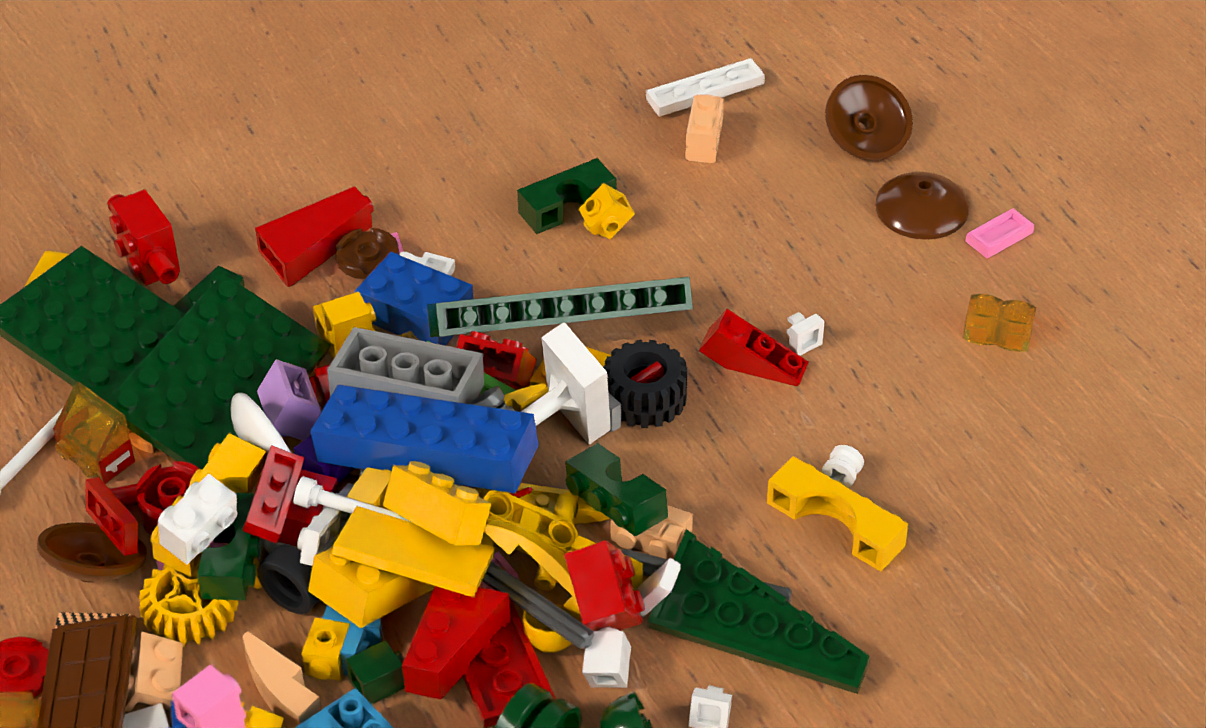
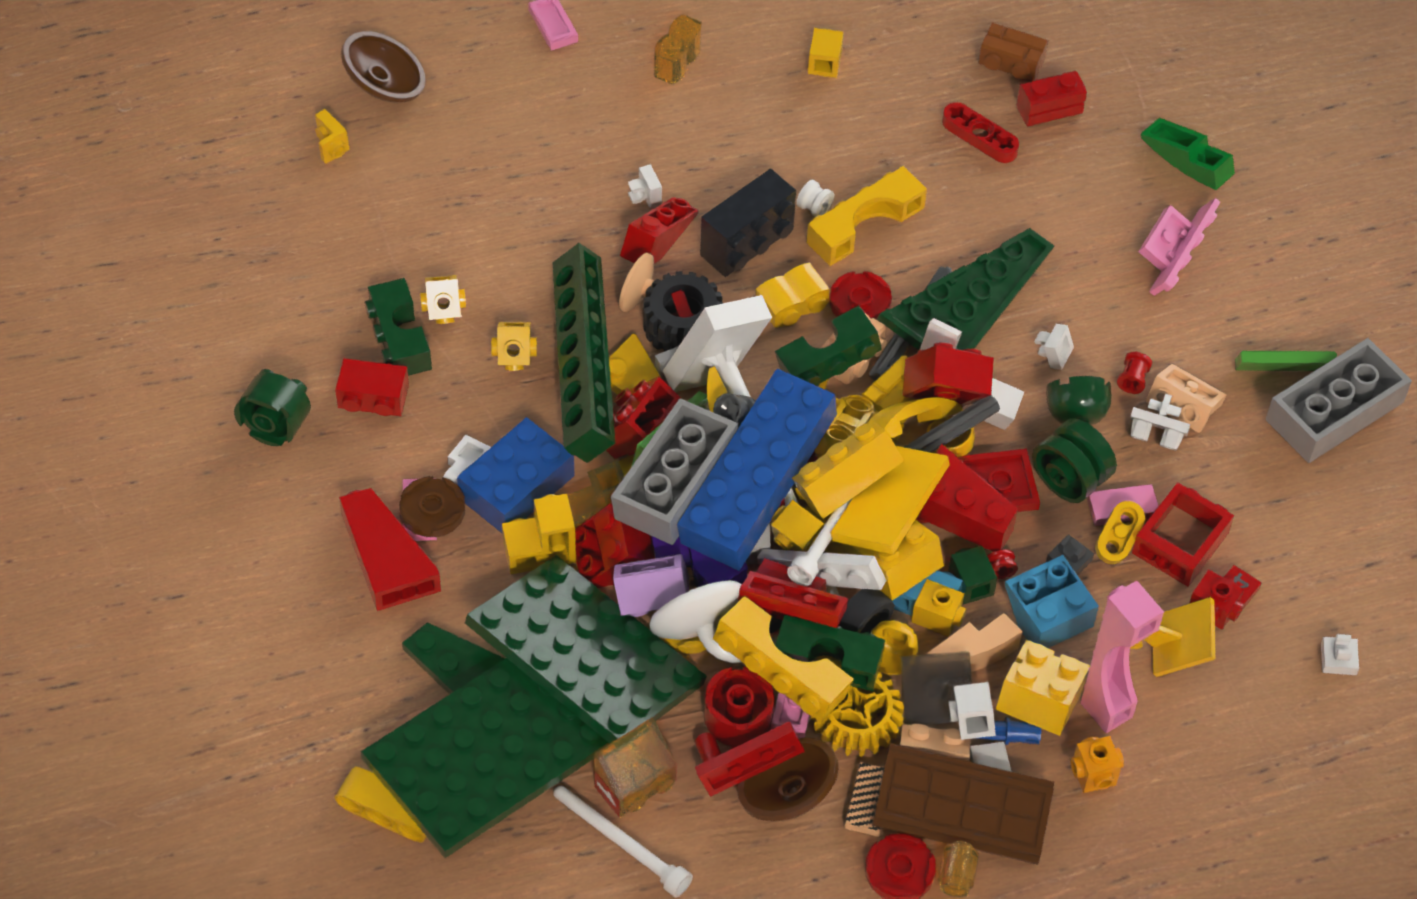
camera: 80 degrees left, 10 degrees up
(144, 237) = (356, 696): red brick -> none
(175, 672) = (973, 711): none -> white brick
(197, 518) = (828, 653): white brick -> none
(224, 646) = (930, 684): none -> clear smoke plate
(271, 617) = (899, 641): none -> yellow hair
(396, 698) = (1003, 563): none -> red bush
(444, 129) = (273, 408): none -> dark green brick
(488, 188) = (372, 387): none -> red brick
(566, 267) = (514, 333): none -> yellow brick
(668, 329) = (637, 283): none -> light nougat dish
(704, 128) = (342, 198): light nougat brick -> none
(704, 469) = (794, 295): none -> yellow brick
(716, 82) = (272, 186): white plate -> none
(729, 529) = (864, 289): none -> red tile
(776, 407) = (748, 223): none -> black brick
(777, 112) = (331, 135): none -> yellow bracket
(922, 205) = (495, 67): reddish brown dish -> none
(1009, 615) = (985, 144): none -> red beam
(1056, 443) = (825, 52): none -> yellow brick
(1082, 655) = (1051, 98): none -> red brick
(1139, 611) = (1013, 52): none -> dark orange brick

